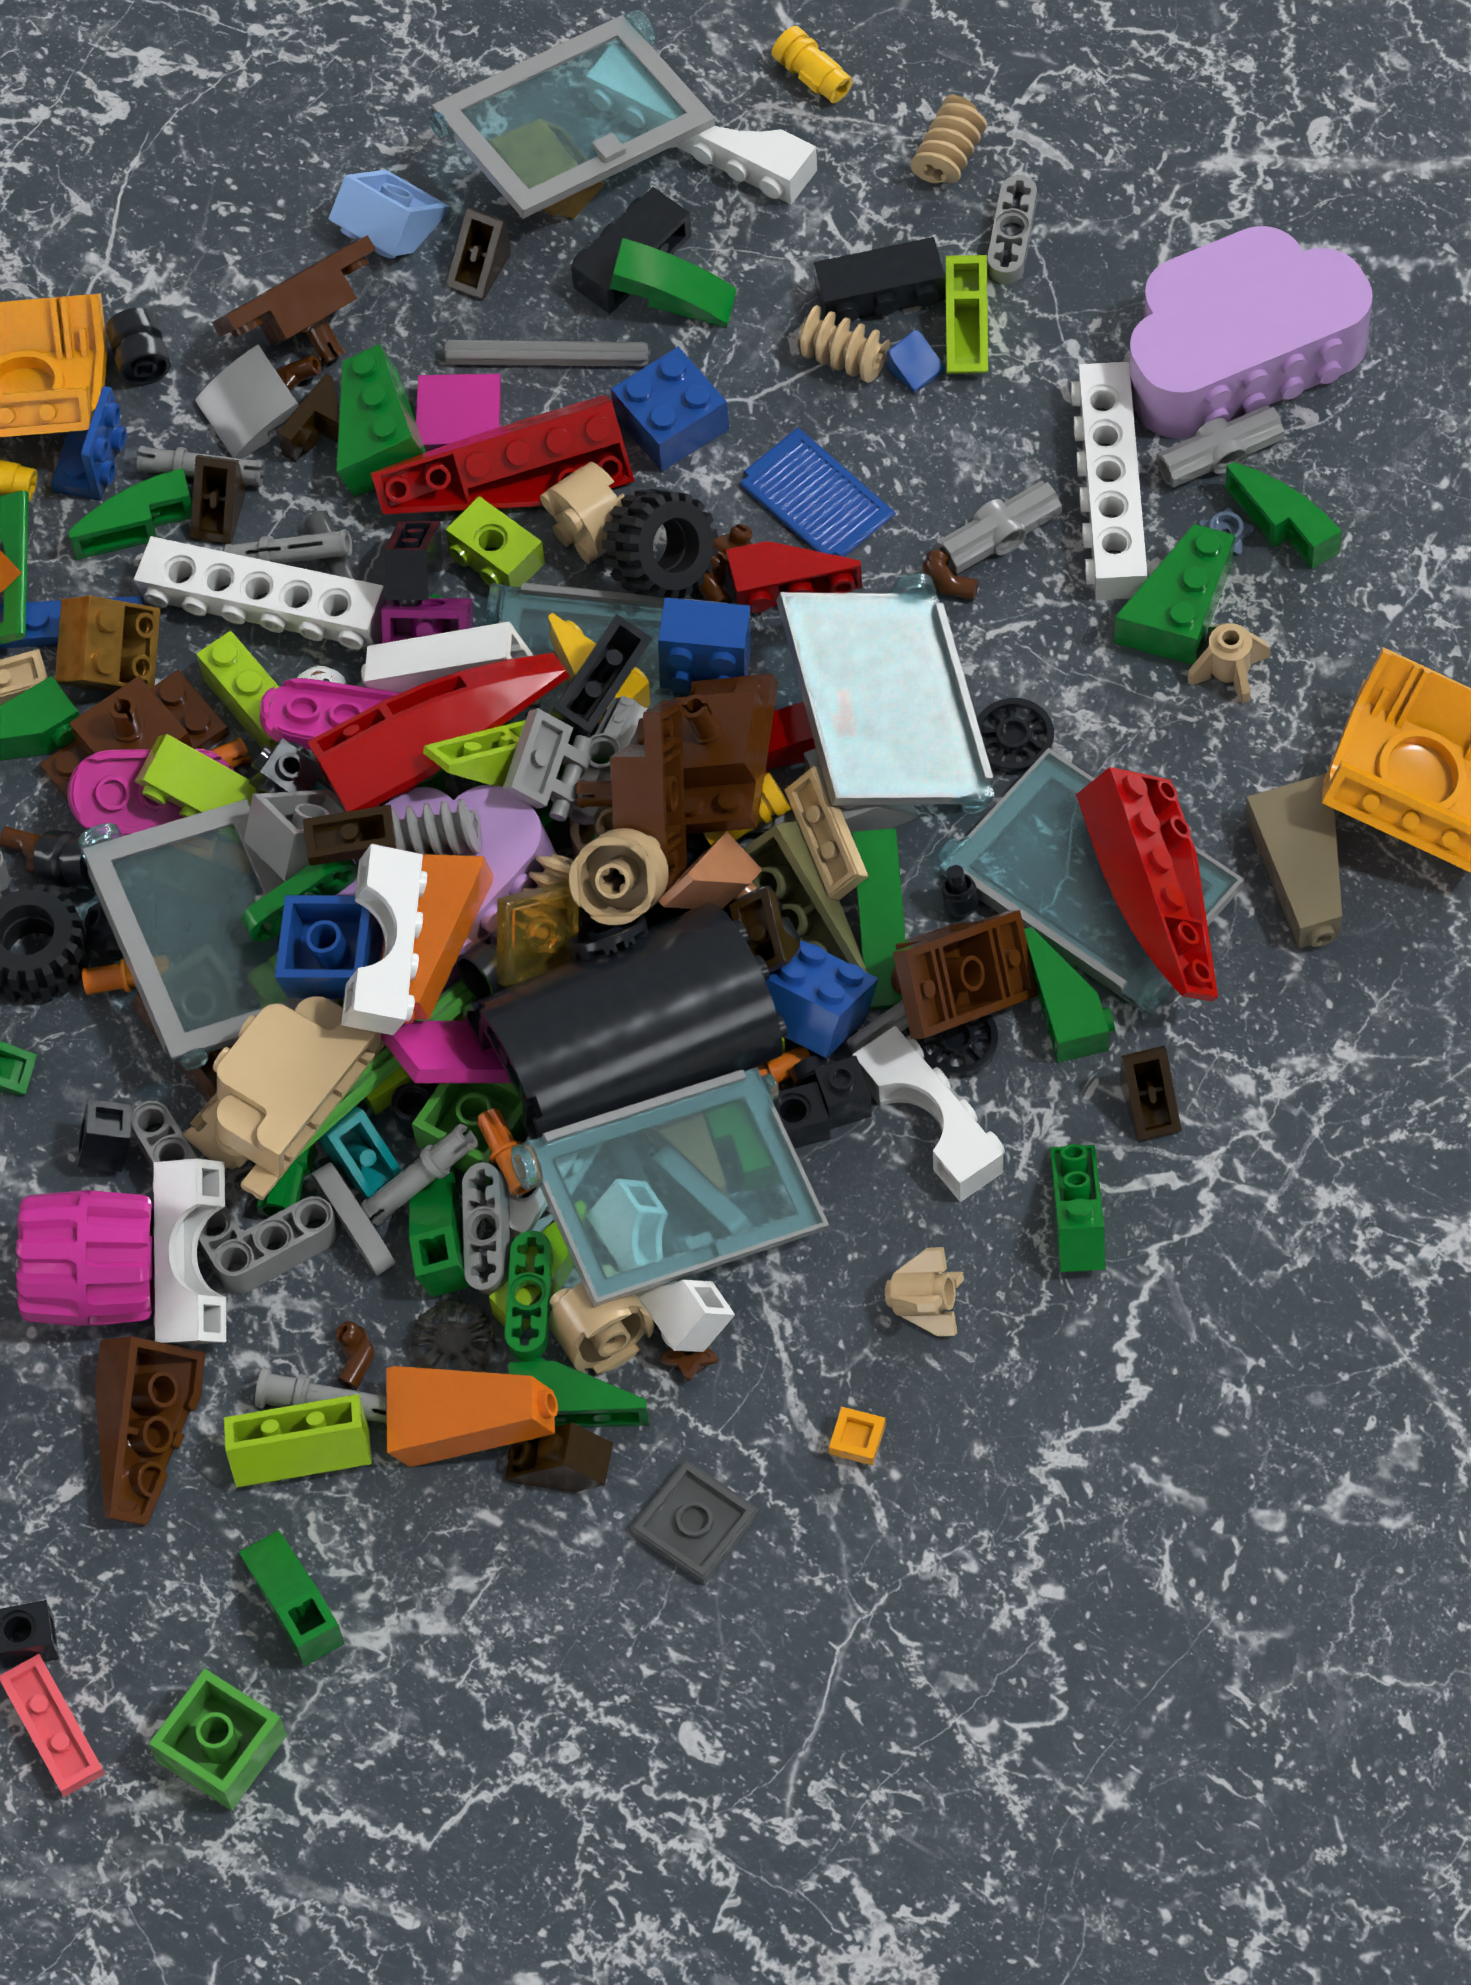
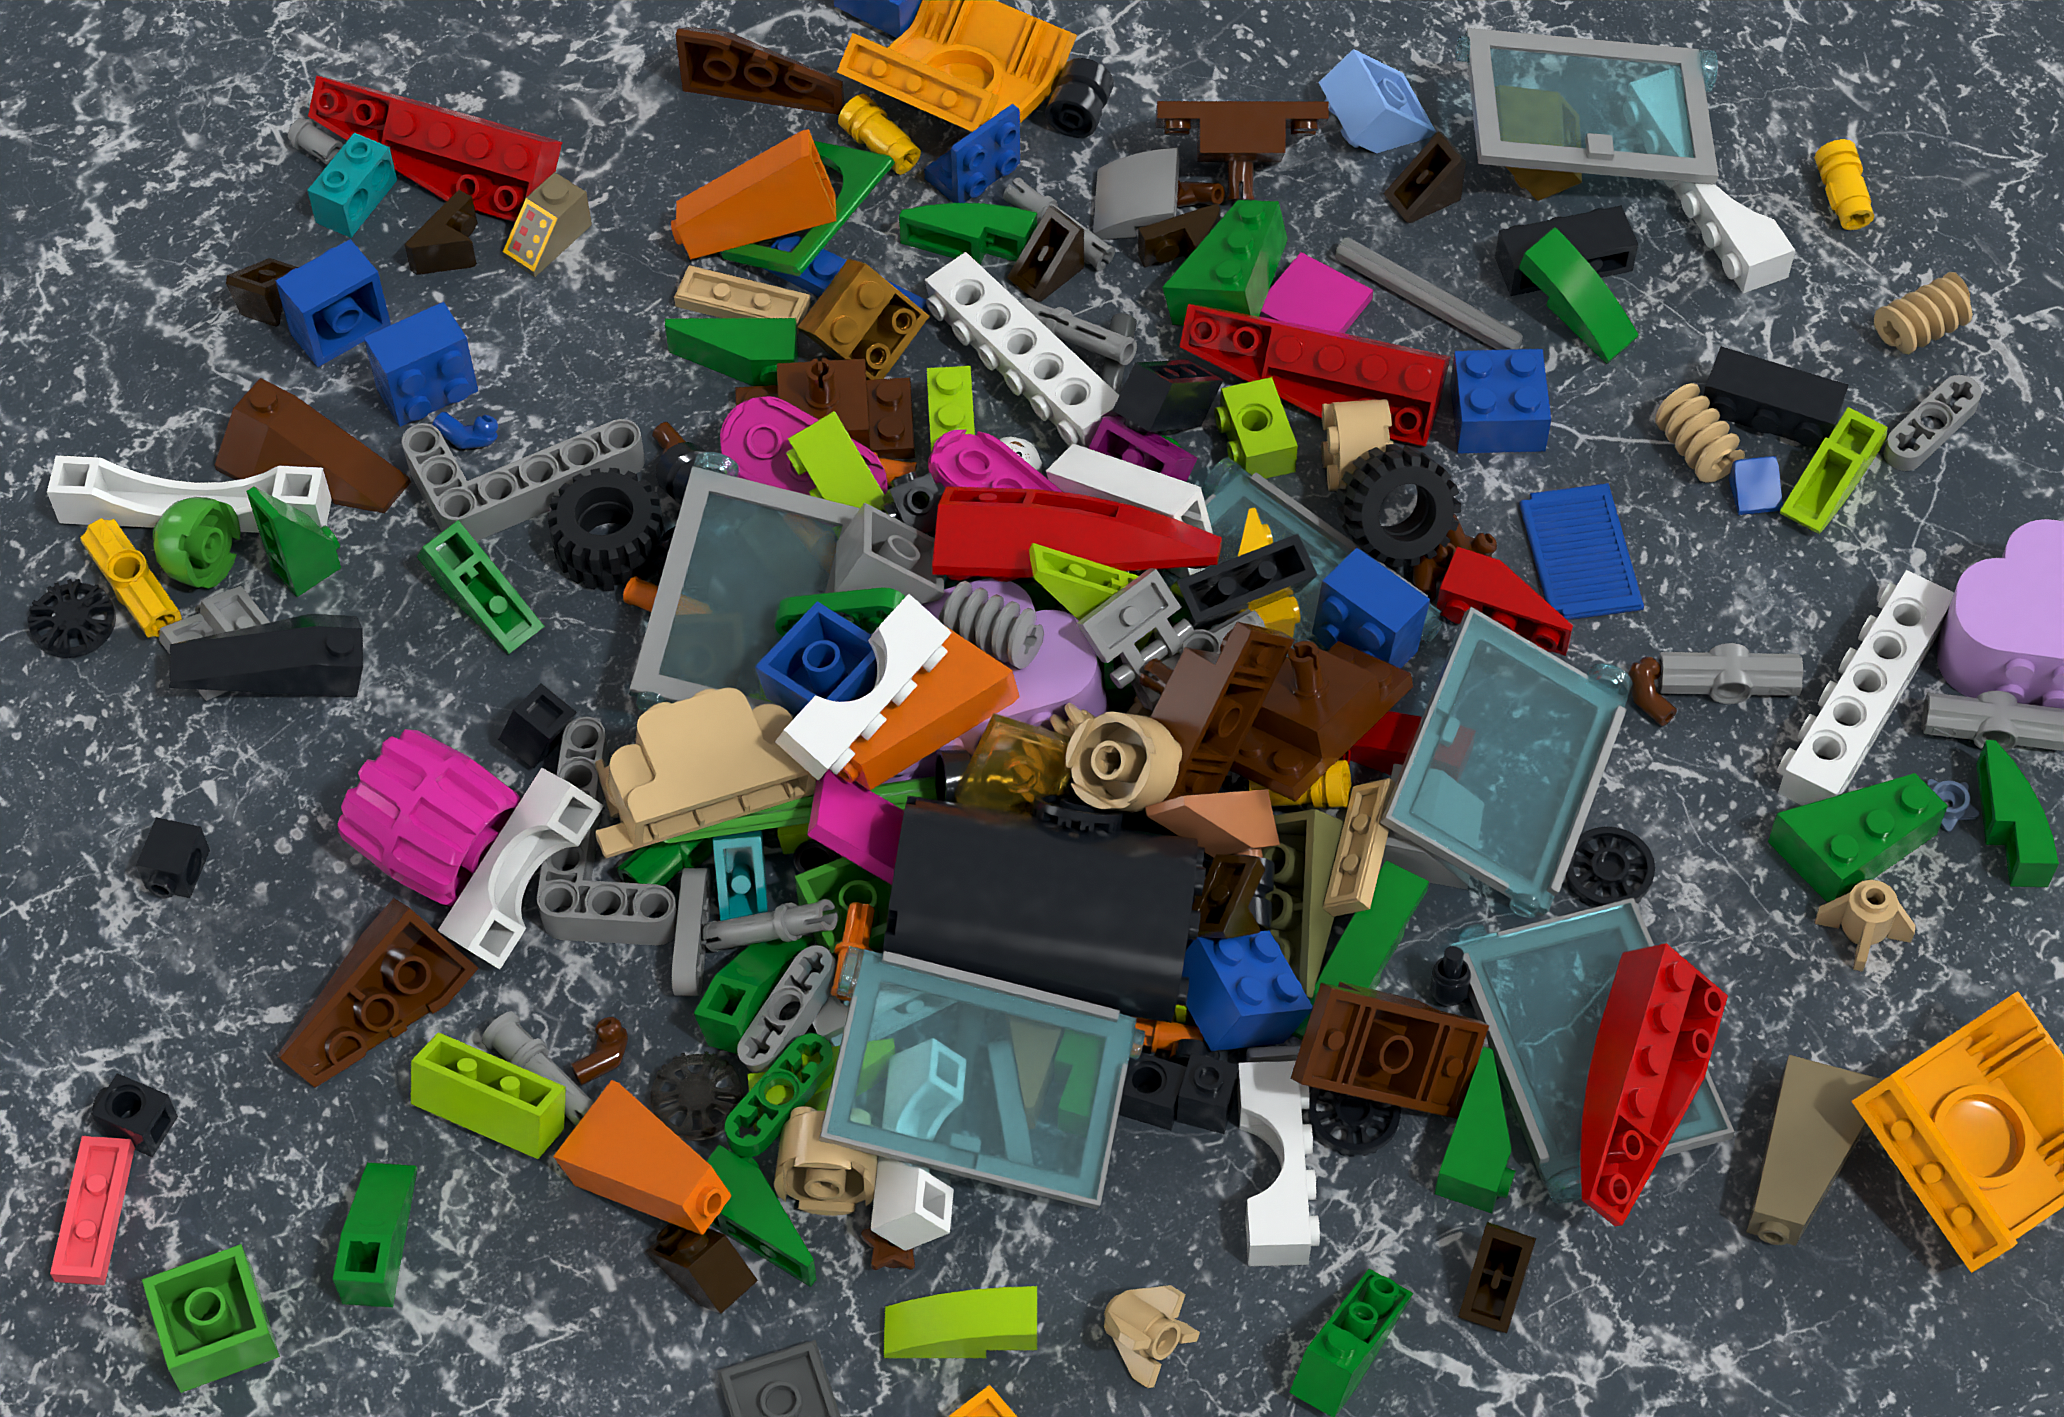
camera: 30 degrees right, 5 degrees down
(348, 834) = (896, 574): dark brown slope -> none
(788, 1376) = (962, 1323): none -> lime slope

